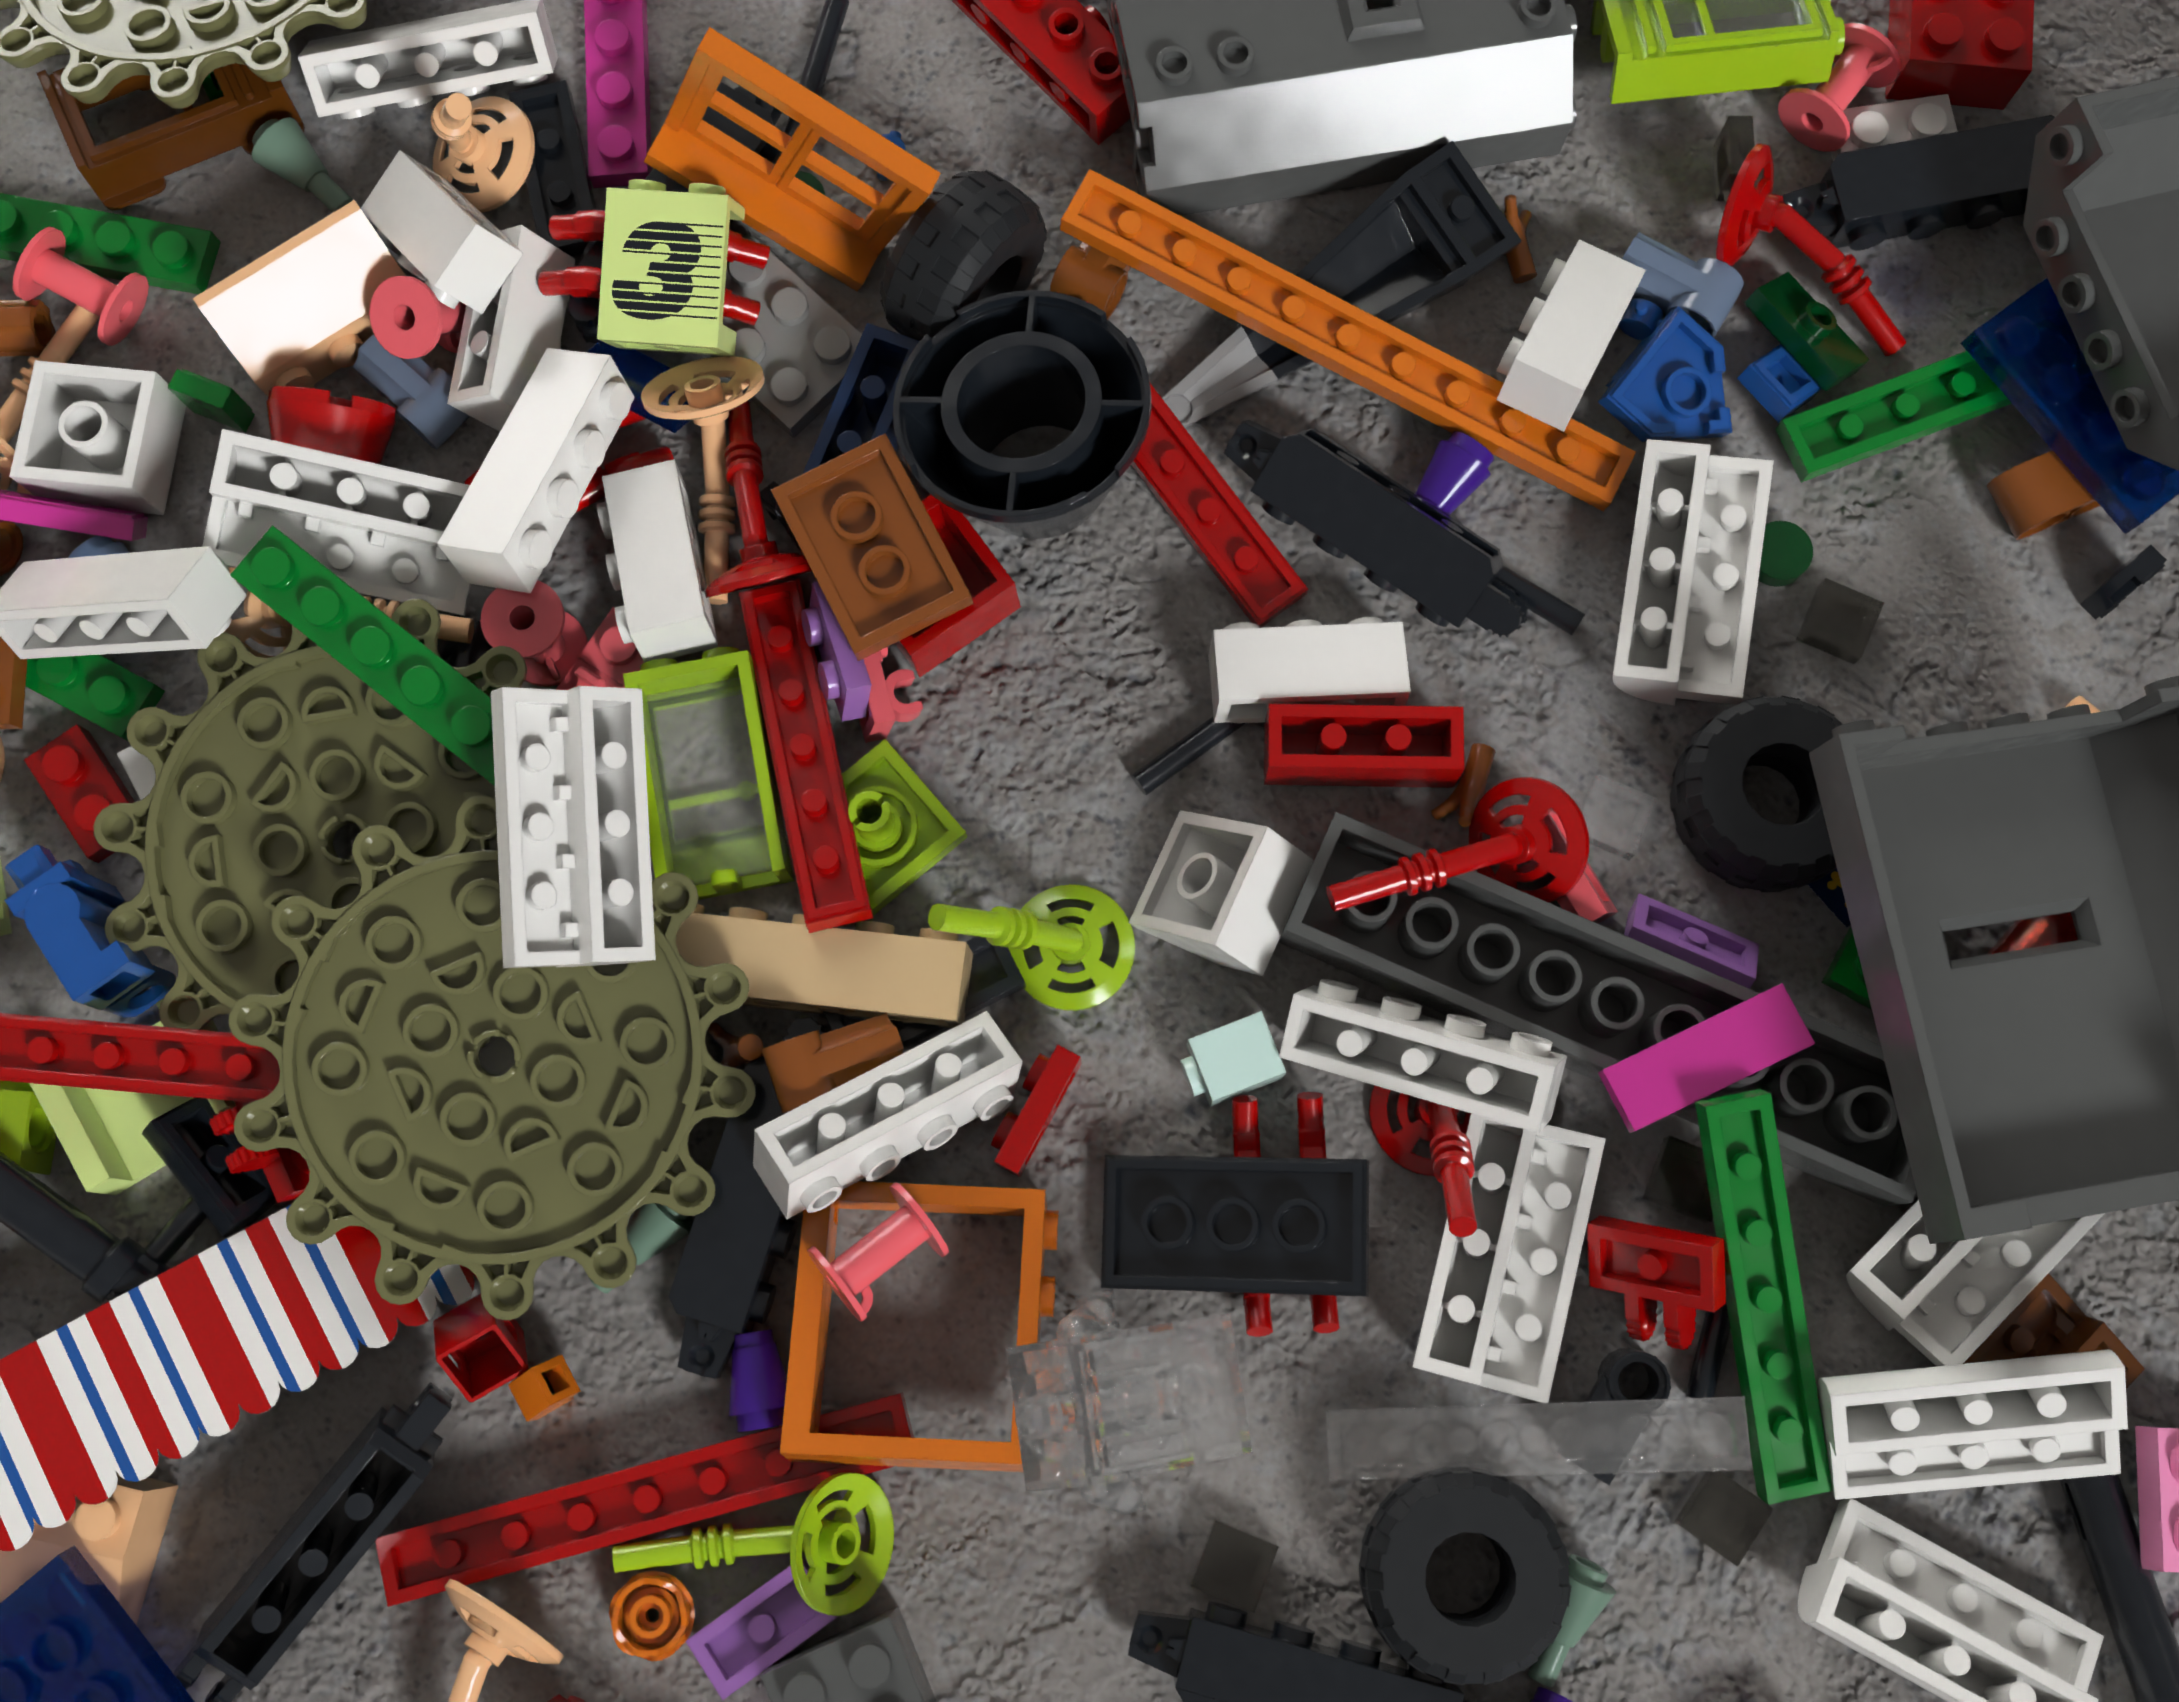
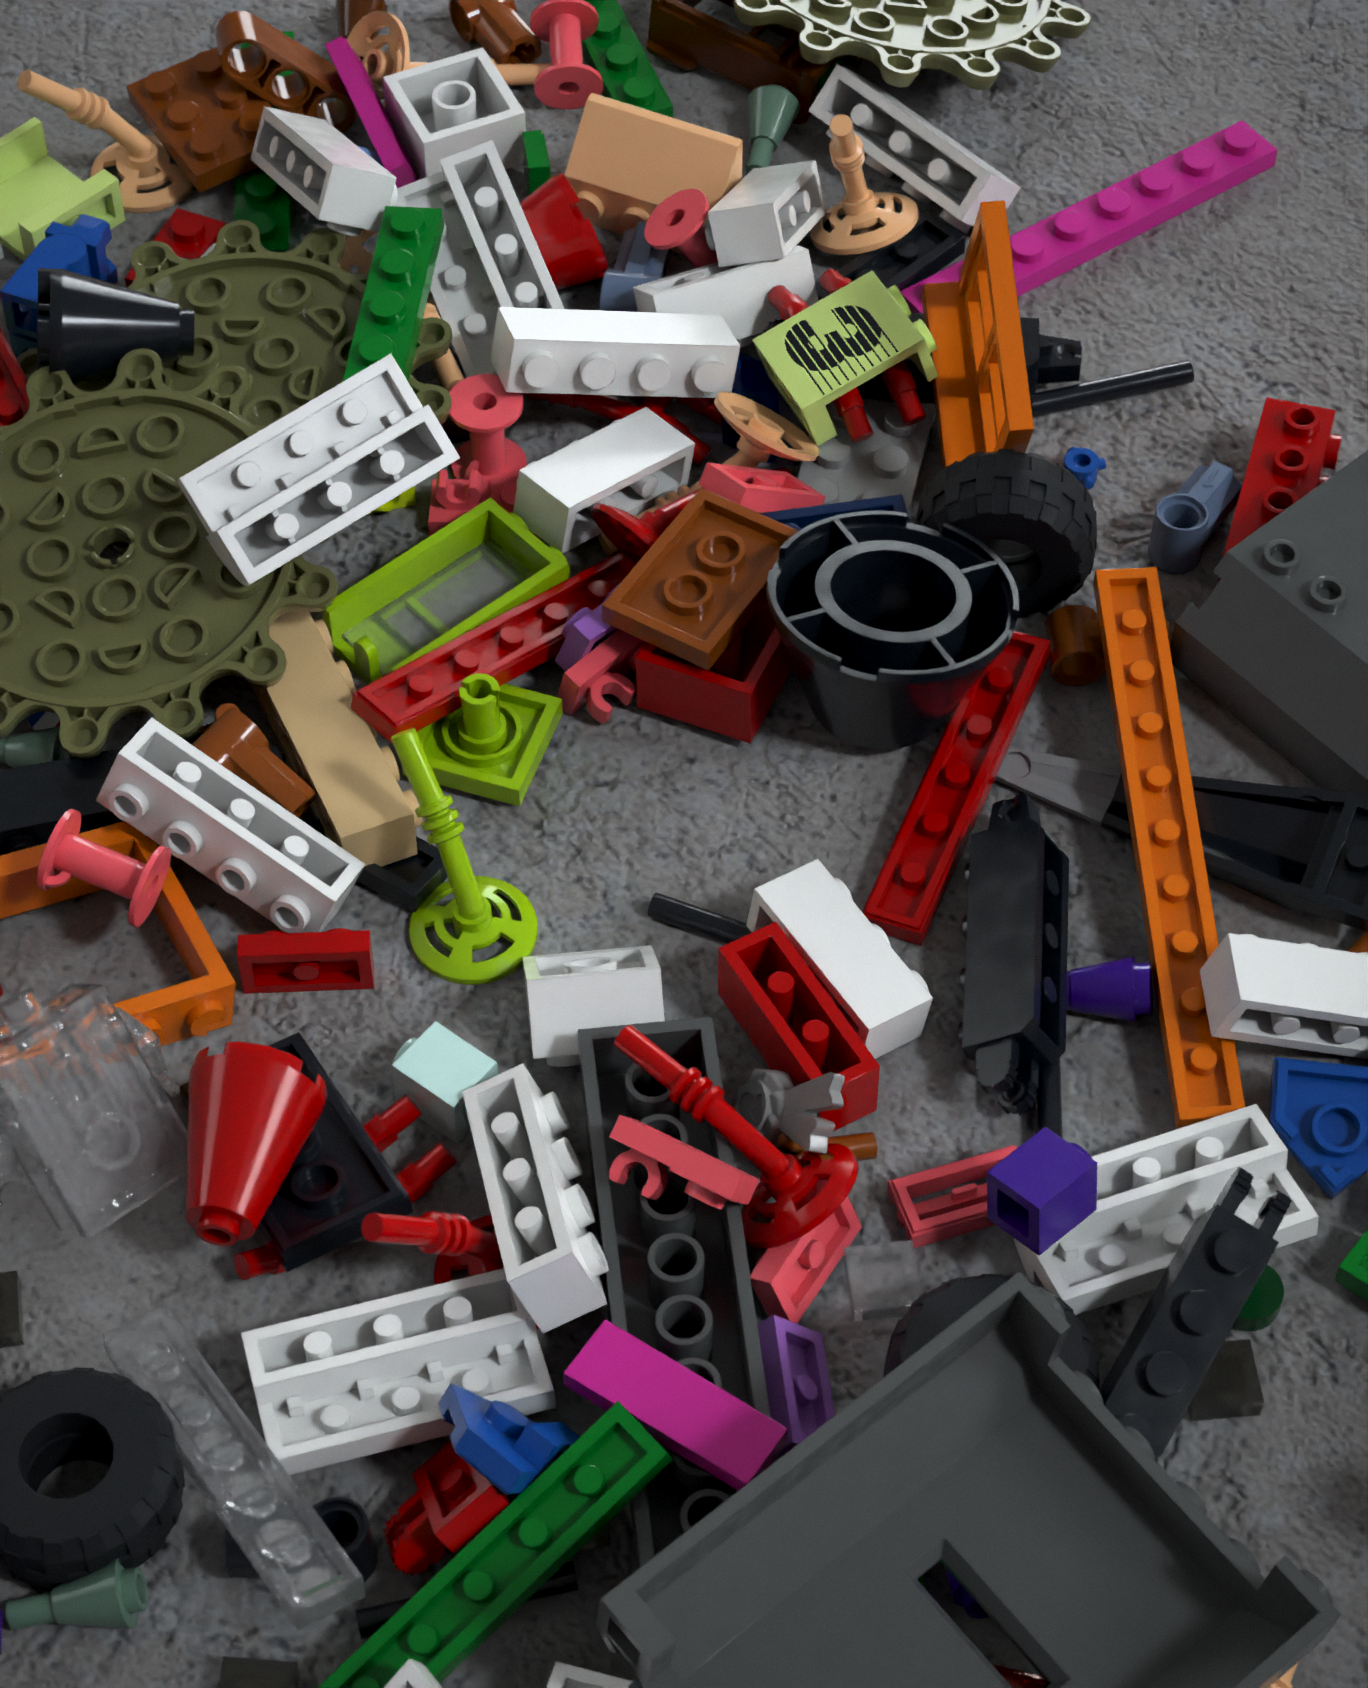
camera: 55 degrees right, 25 degrees down
(213, 927) = (94, 323): none -> black cone
(778, 437) = (759, 488): none -> coral plate
(1010, 102) = (1191, 517): none -> sand blue piece
(1253, 1279) = (244, 1134): none -> red cone
(1428, 812) = (778, 1107): none -> light grey piece
(1503, 913) = (708, 1177): none -> coral plate
(1560, 758) = (949, 1214): none -> coral tile
(1657, 1204) = (501, 1439): none -> blue plate
(1663, 652) = (1042, 1190): none -> dark purple brick
(1824, 612) = (1191, 1313): none -> black hinge

